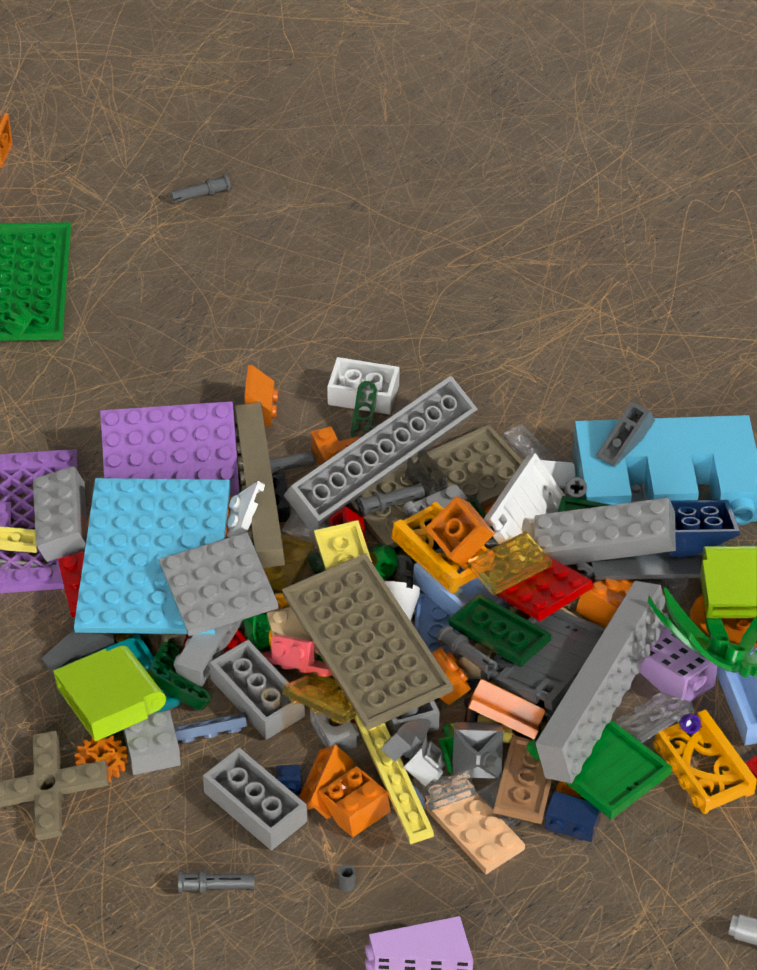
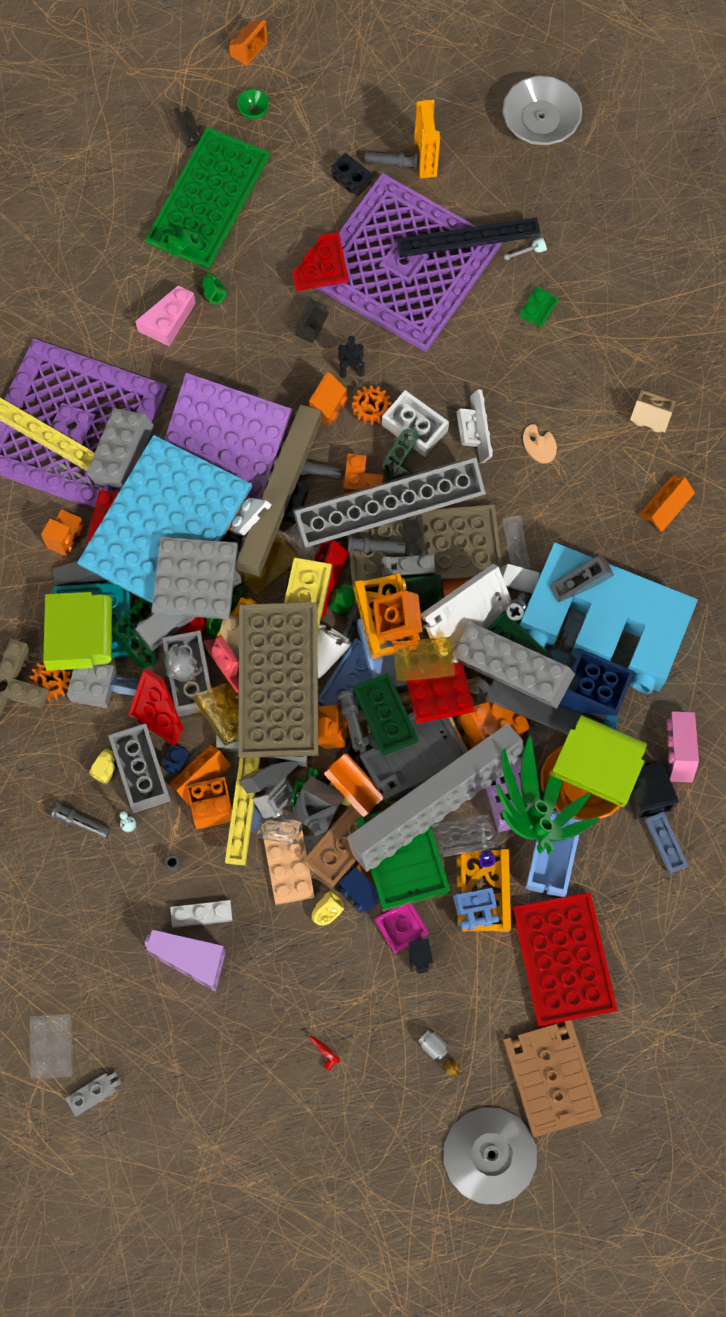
camera: 25 degrees right, 25 degrees up
(28, 187) = (251, 98): none -> green piece
(36, 617) = (62, 533): none -> orange brick
(40, 390) = (167, 316): none -> bright pink wedge
(78, 351) = (213, 289): none -> green rock
(166, 213) = (354, 171): none -> black brick
(184, 289) = (322, 265): none -> red plate
(199, 343) = (311, 321): none -> clear smoke hinge
(212, 818) = (103, 766): none -> light yellow rock
(232, 150) = (426, 138): none -> light orange fence
(239, 725) = (155, 708): none -> red plate
(249, 670) = (181, 664): none -> clear cylinder
(262, 349) = (351, 355): none -> black plant
(271, 858) = (126, 820): none -> light aqua hinge
(306, 388) = (375, 398): none -> orange gear
(319, 219) = (468, 237): none -> black plate
(319, 314) = (387, 192): none -> medium lavender plate
(329, 100) = (543, 98): none -> light grey dish
(392, 207) = (538, 246): none -> hinge
(413, 912) = (201, 914): none -> white plate
(423, 365) = (474, 426): none -> white bracket
(424, 256) = (538, 307): none -> green plate
(503, 365) = (543, 448): none -> light nougat piece
(547, 848) = (327, 909): none -> light yellow rock
(595, 295) = (652, 411): none -> tan slope
(638, 833) = (401, 926): none -> dark pink plate
(659, 362) = (668, 502): none -> orange panel
(678, 844) = (420, 955): none -> black brick
(703, 770) = (473, 902): none -> medium blue plate

